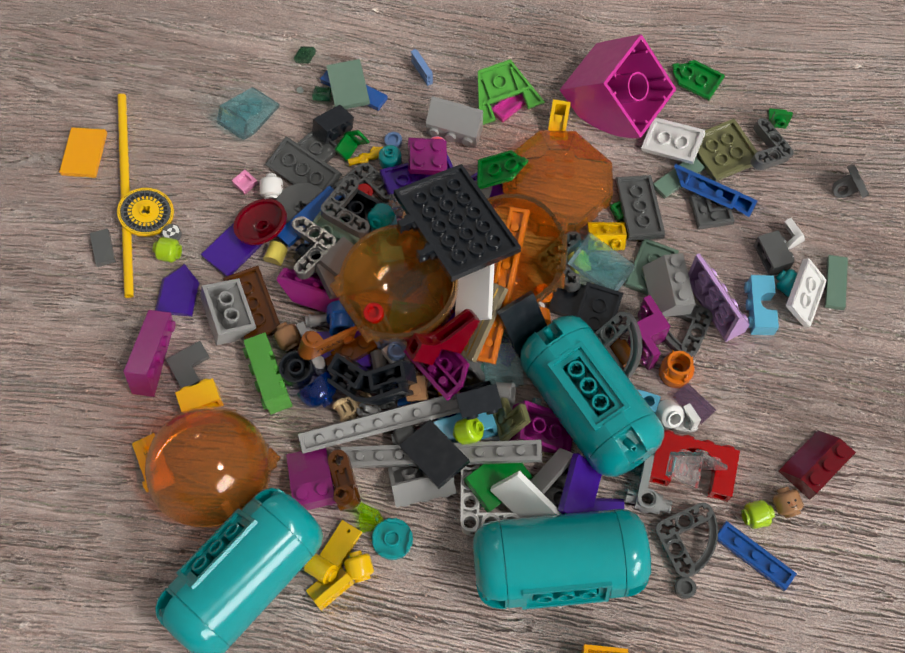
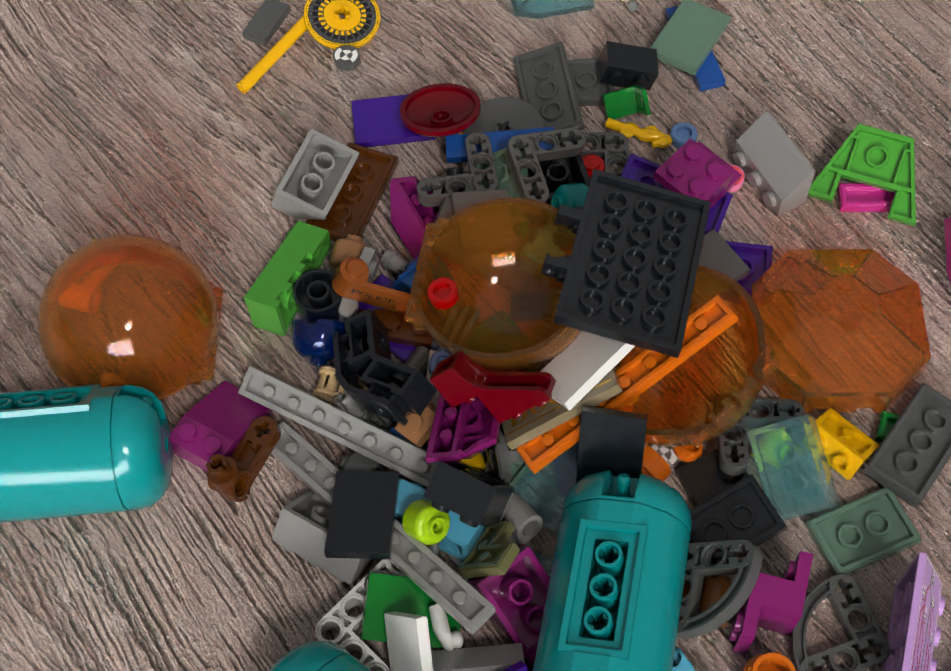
camera: 45 degrees right, 5 degrees down
(149, 353) = (197, 159): magenta wedge -> none
(167, 249) = (324, 70): lime head -> none
(178, 292) = (289, 123): dark purple tile -> none
(184, 361) = (224, 198): dark grey tile -> none
(202, 394) = (205, 246): yellow brick -> none
(244, 182) = (473, 60): bright pink tile -> none
(271, 186) = (493, 83): white head -> none
(275, 253) = (429, 159): light yellow brick -> none
(322, 94) = (650, 26): clear green tile -> none
(324, 594) = (121, 563): yellow panel -> none
(326, 565) = (139, 535): yellow door -> none
(359, 566) = (169, 568): yellow head -> none
(368, 517) = (233, 527): clear neon green tile -> none
(390, 156) = (657, 146): teal head -> none
(392, 539) = (237, 573): teal tile -> none
(421, 67) = (798, 77): medium blue tile -> none
(499, 168) = (771, 254): green tile -> none
(529, 473) = (441, 628): none -> white arm
(559, 115) = (917, 252): yellow slope -> none
(669, 285) = (858, 569): light grey slope -> none

